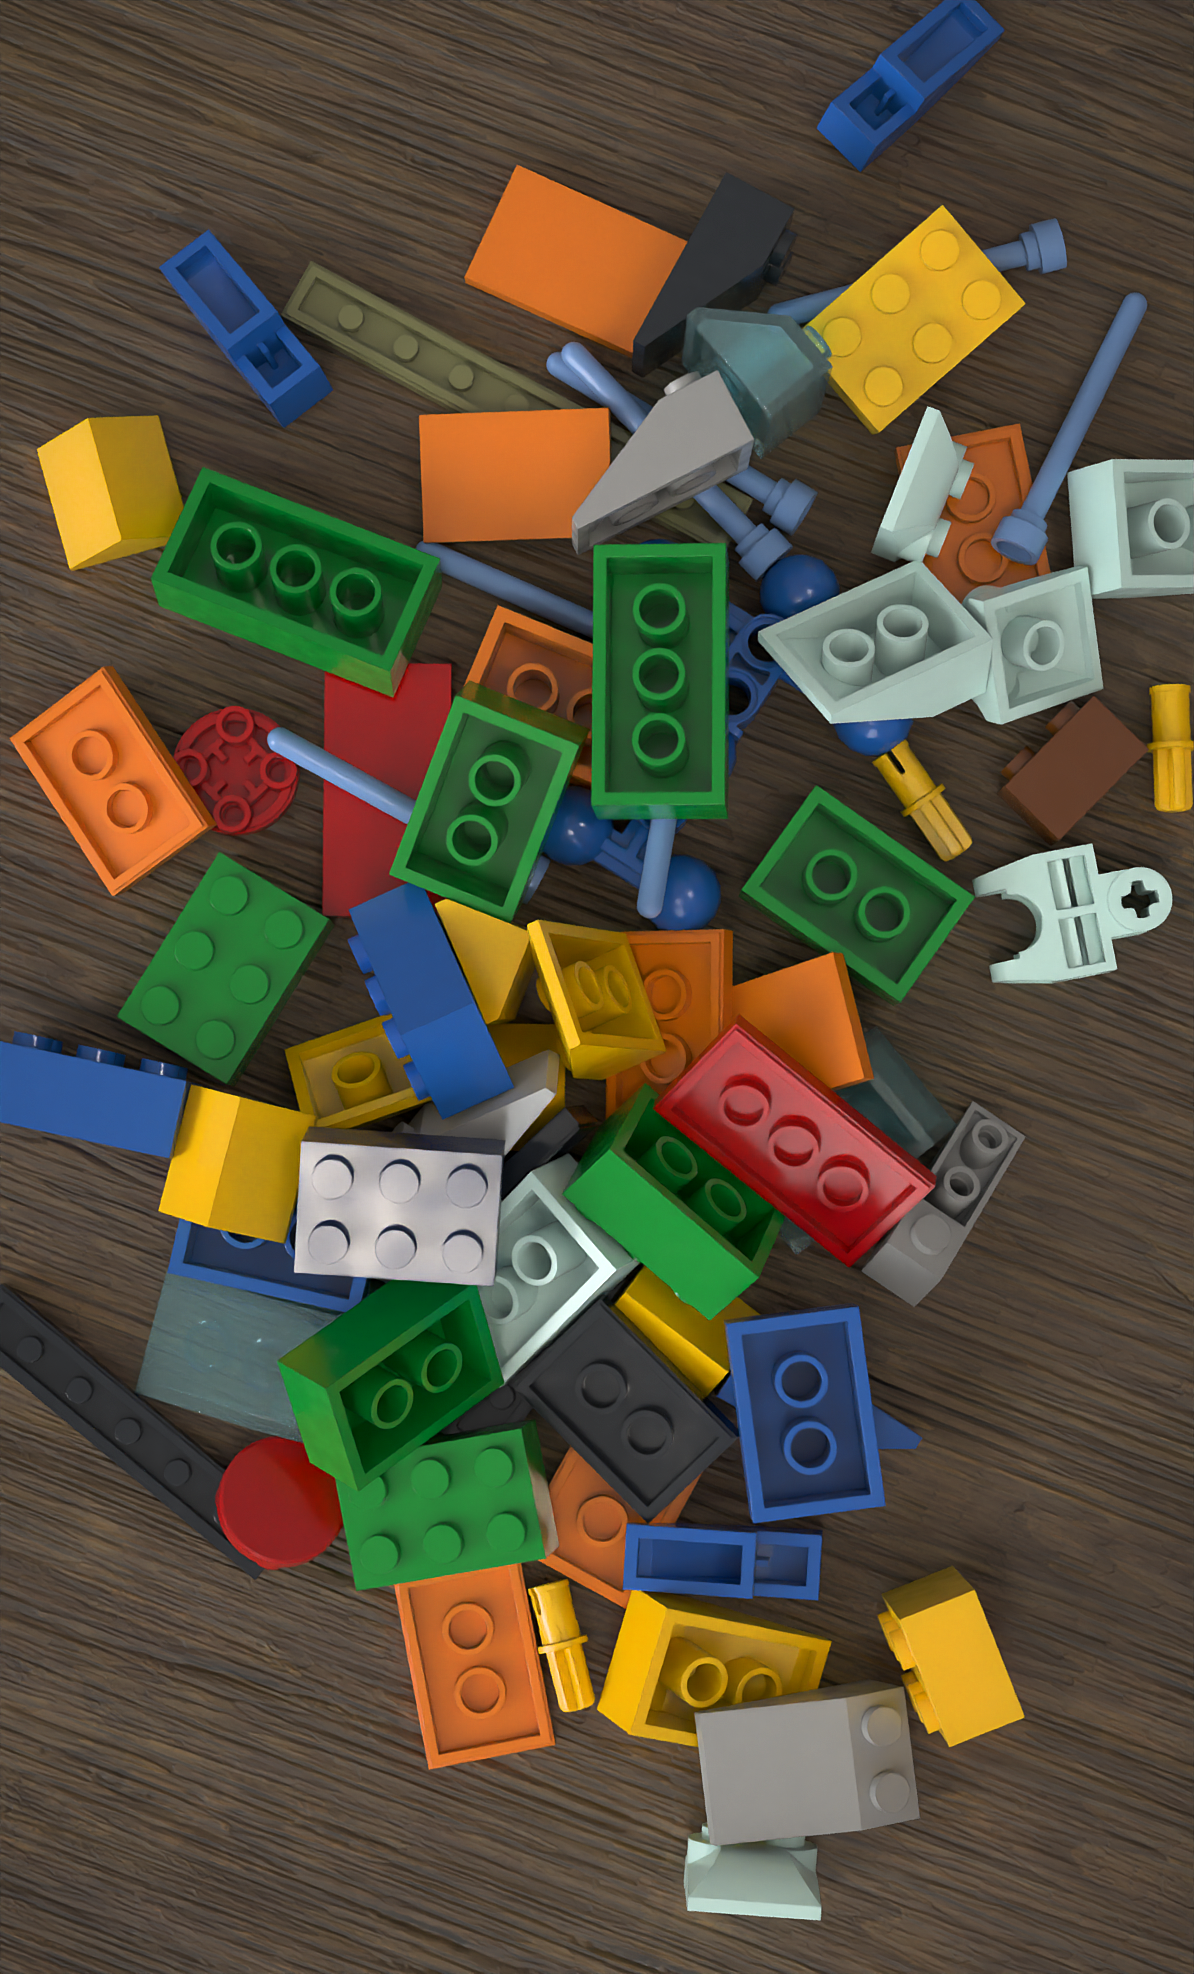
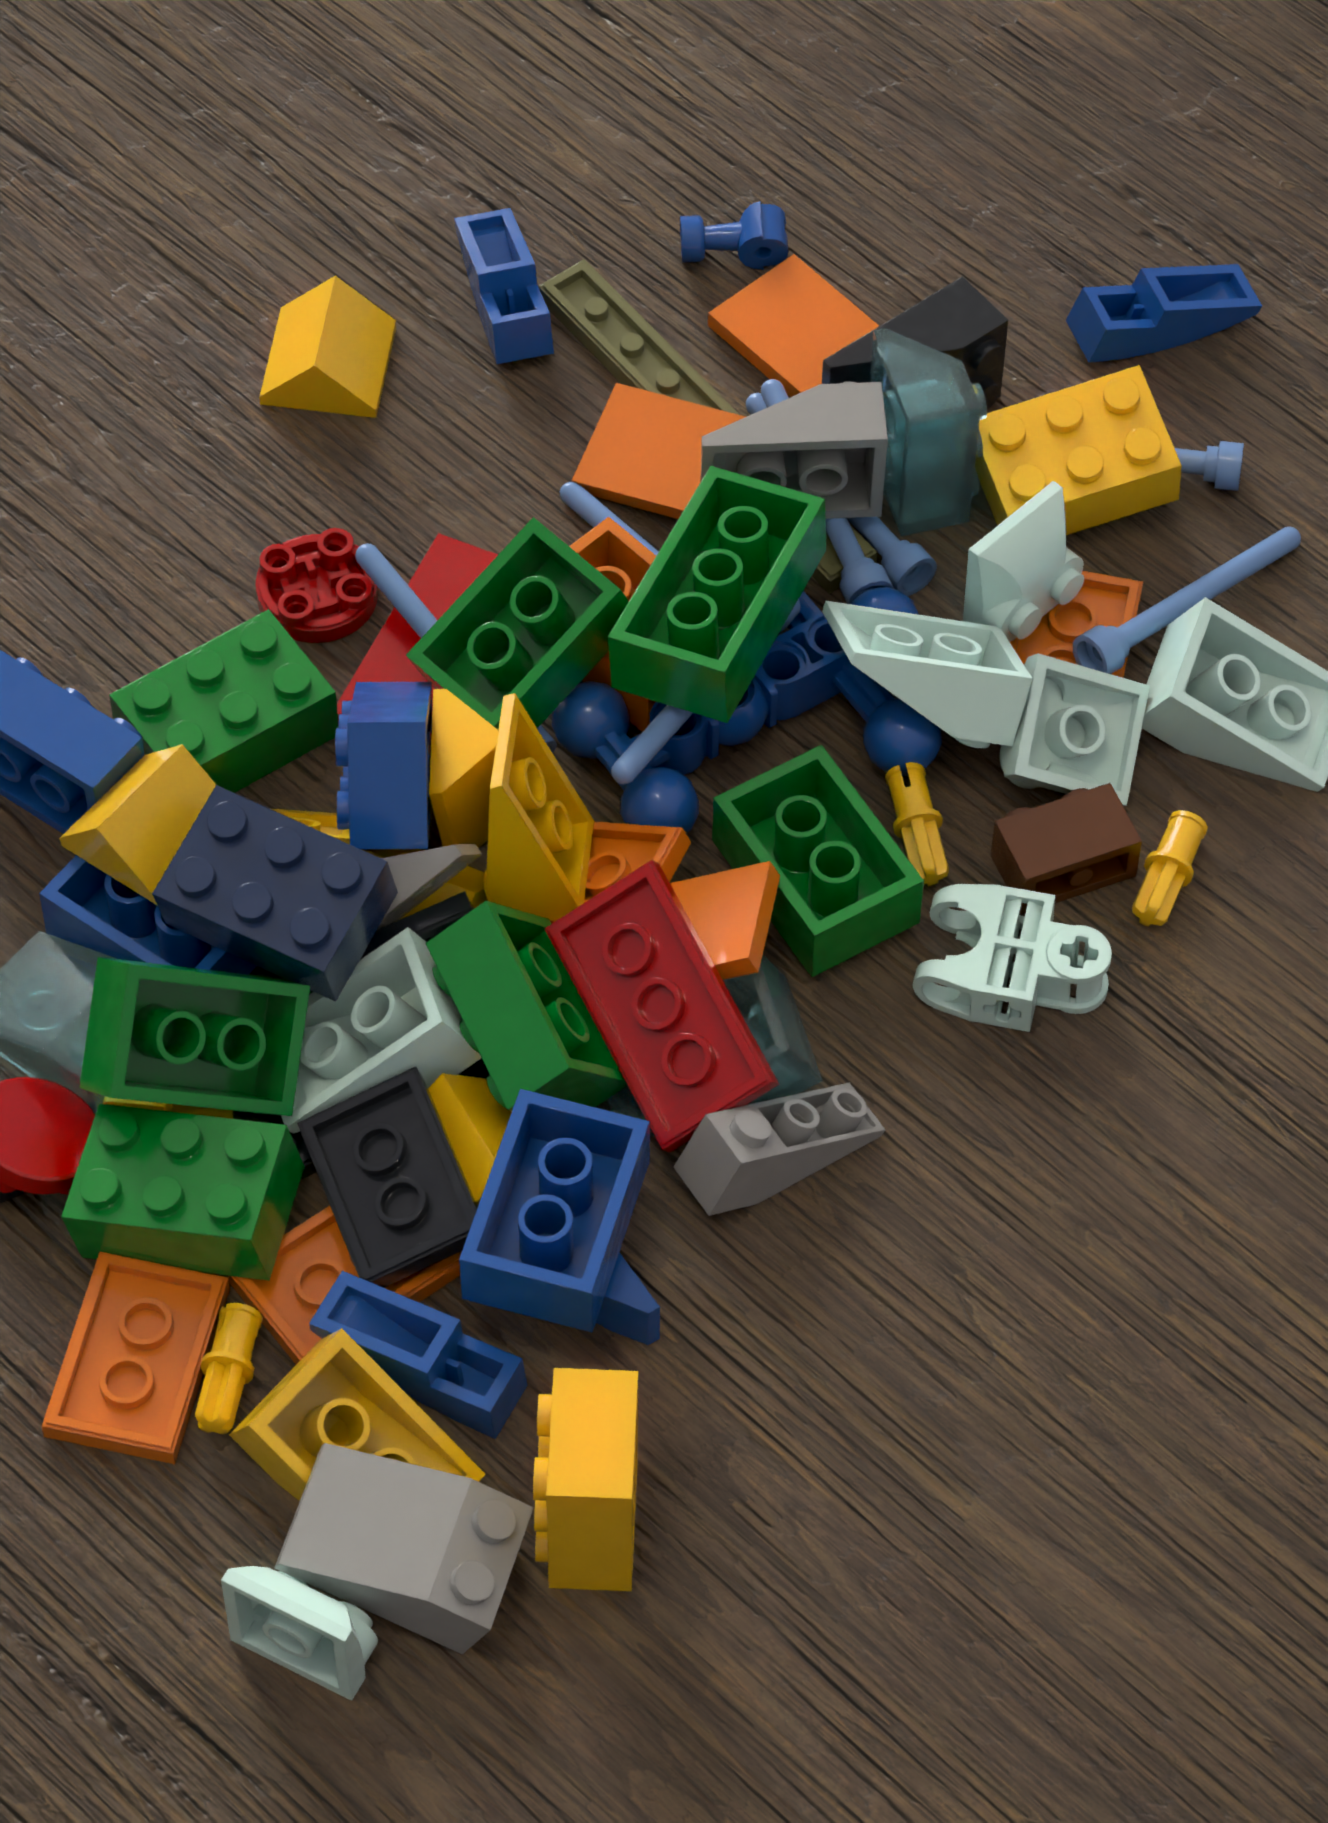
camera: 25 degrees right, 30 degrees down
(112, 781) = (207, 548): orange tile -> none
(297, 581) = (446, 450): green brick -> none
(471, 161) = (757, 237): none -> blue leg

